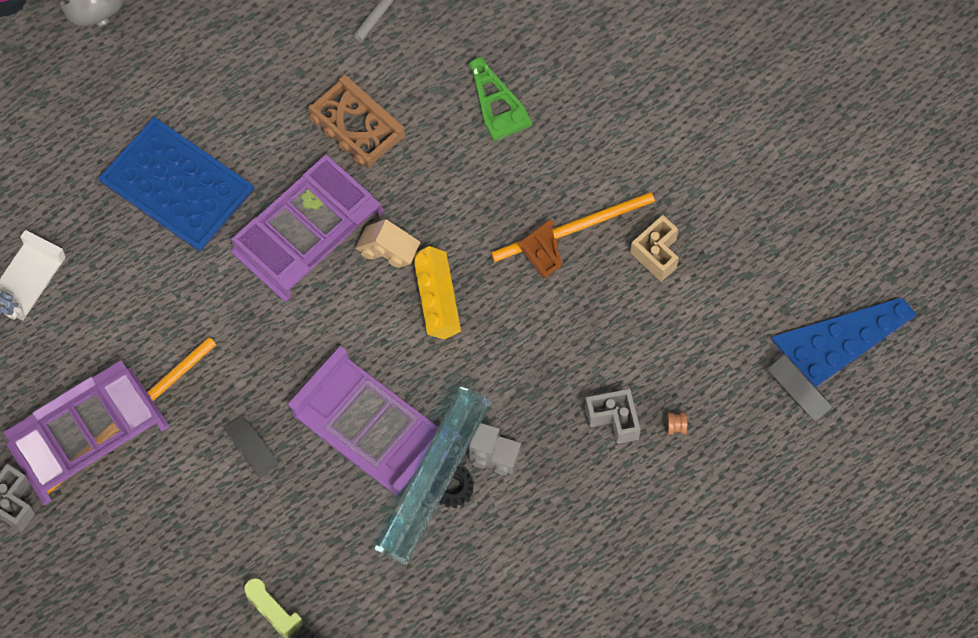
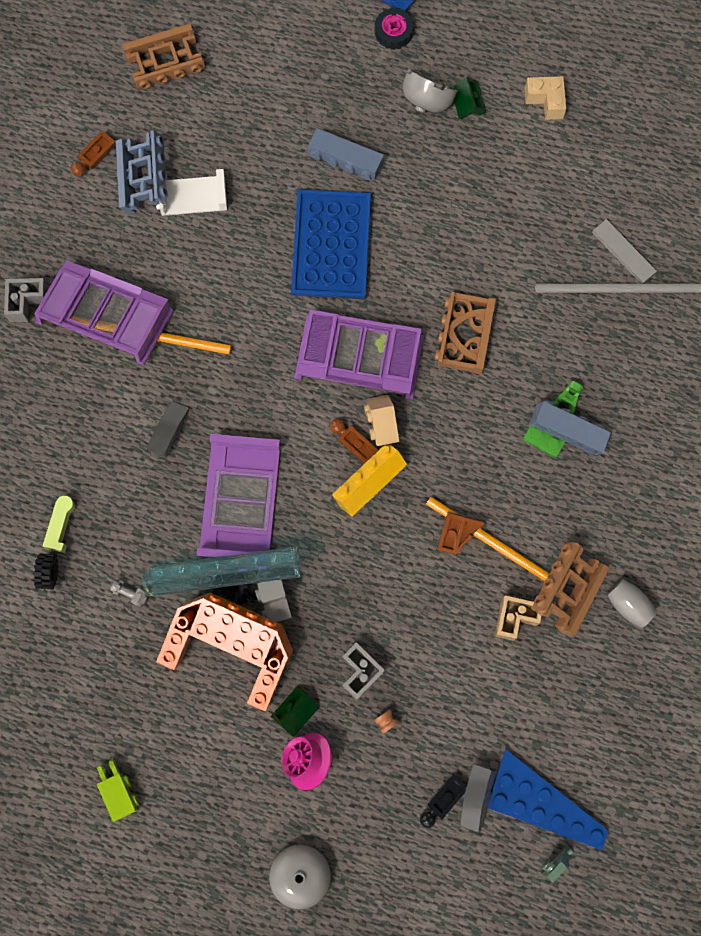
camera: 55 degrees right, 10 degrees up
(97, 114) = (345, 154): none -> sand blue brick
(388, 285) = (353, 441): none -> dark orange plate
(399, 577) = (138, 597): none -> light grey bar
(498, 499) = (236, 632): none -> wedge
(514, 91) = (570, 428): none -> sand blue brick
(611, 500) = (295, 711): none -> dark green panel
(668, 512) = (307, 760): none -> dark pink piece
(673, 176) = (582, 594): none -> medium nougat fence
(712, 145) = (632, 603): none -> light grey piece
(770, 591) = (303, 861): none -> light grey cylinder
(784, 420) = (443, 801): none -> black plate
(907, 358) = (555, 868): none -> sand green wing

